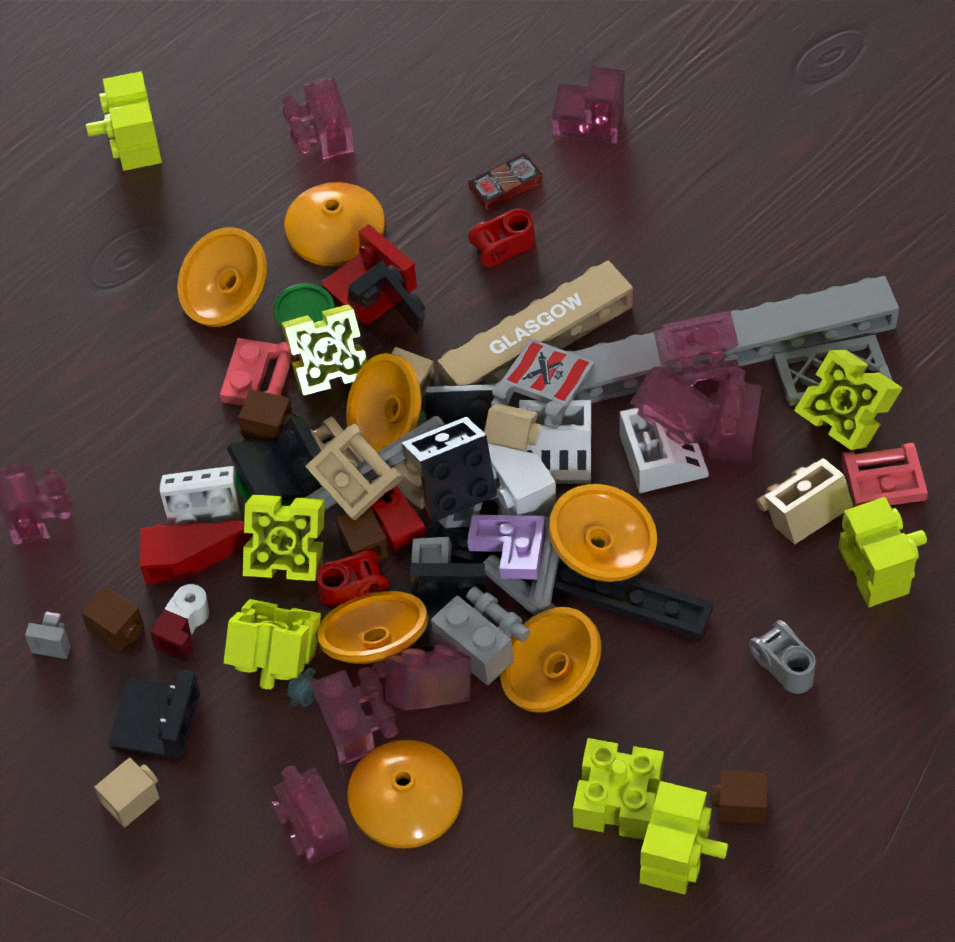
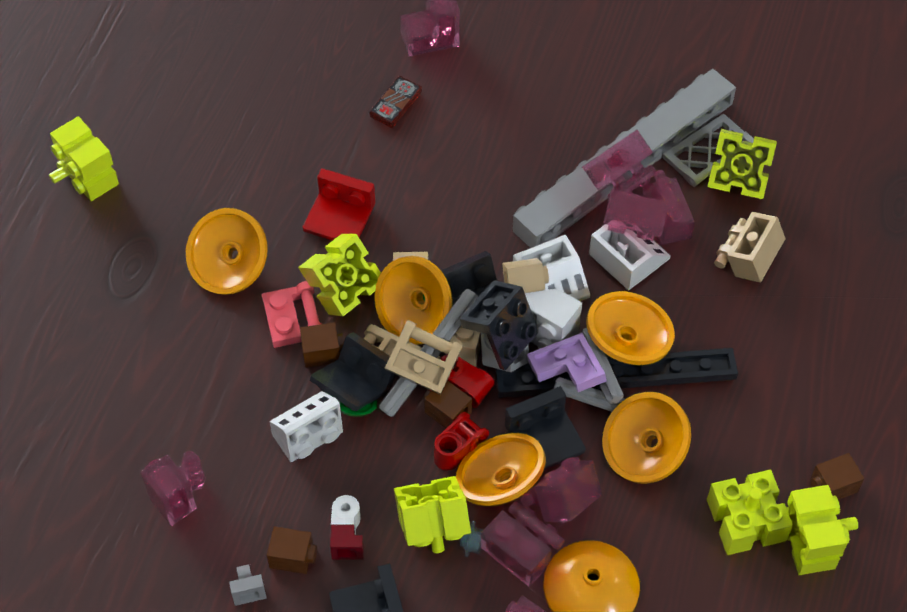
camera: 30 degrees left, 0 degrees up
(185, 550) = (314, 474): red slope -> none
(283, 537) = (394, 429): neon yellow brick -> none
(302, 301) = (297, 248): green piece -> none
(327, 116) = (232, 105): clear pink brick -> none
(328, 235) = (285, 190): light orange dish -> none
(367, 289) = (370, 209): black bracket -> none
(431, 550) = (510, 394): light grey tile -> none
(476, 636) = (583, 441): light grey brick -> none
(503, 236) = (419, 145): red piece -> none
(547, 376) = (522, 229): light grey flag -> none
(554, 320) = (487, 201): tan brick -> none
(780, 652) = (802, 365): light grey piece -> none
(878, 551) = (826, 262): neon yellow brick -> none
(896, 483) = (798, 214): coral plate -> none

